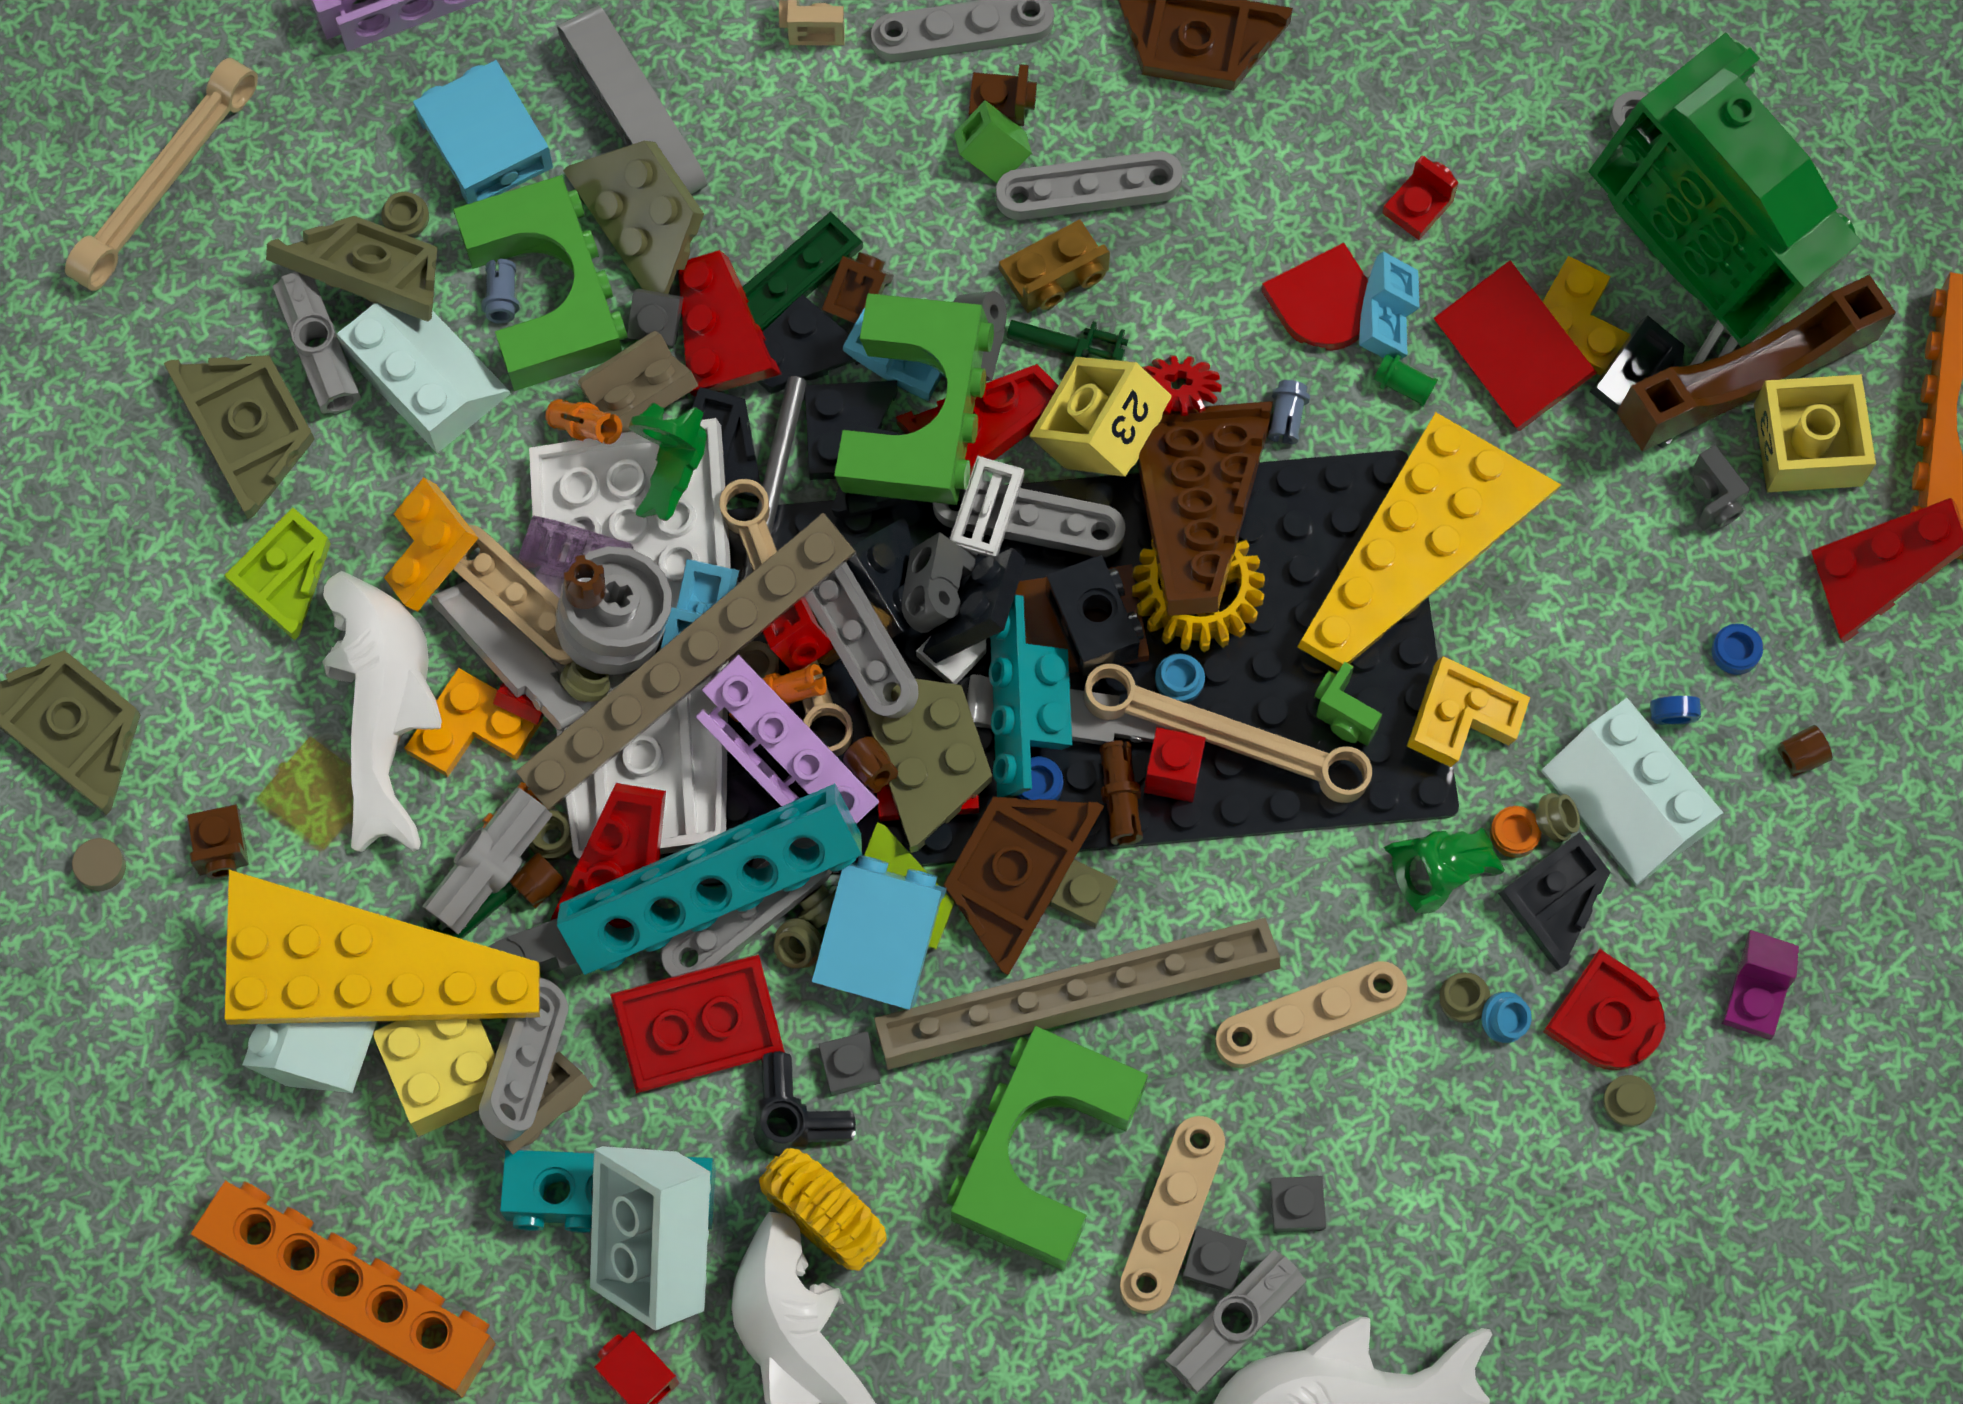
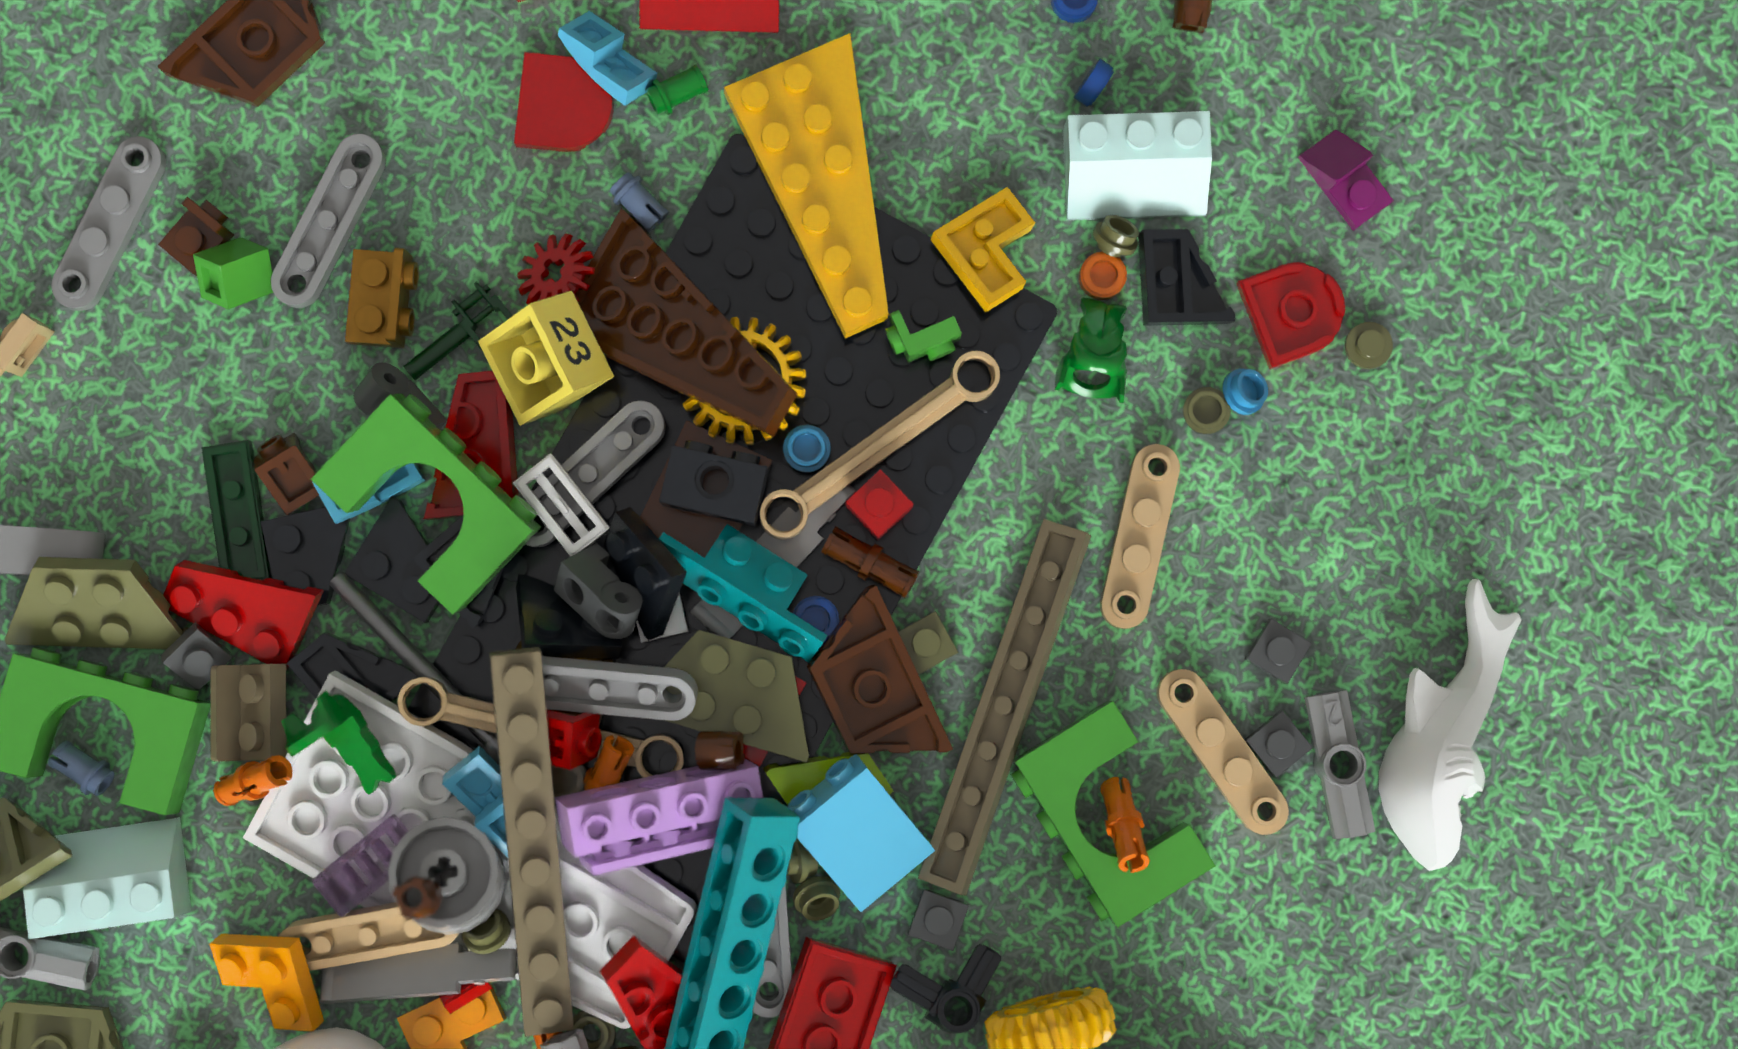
camera: 60 degrees left, 15 degrees up
(1046, 1158) = (1124, 825): none -> orange pin

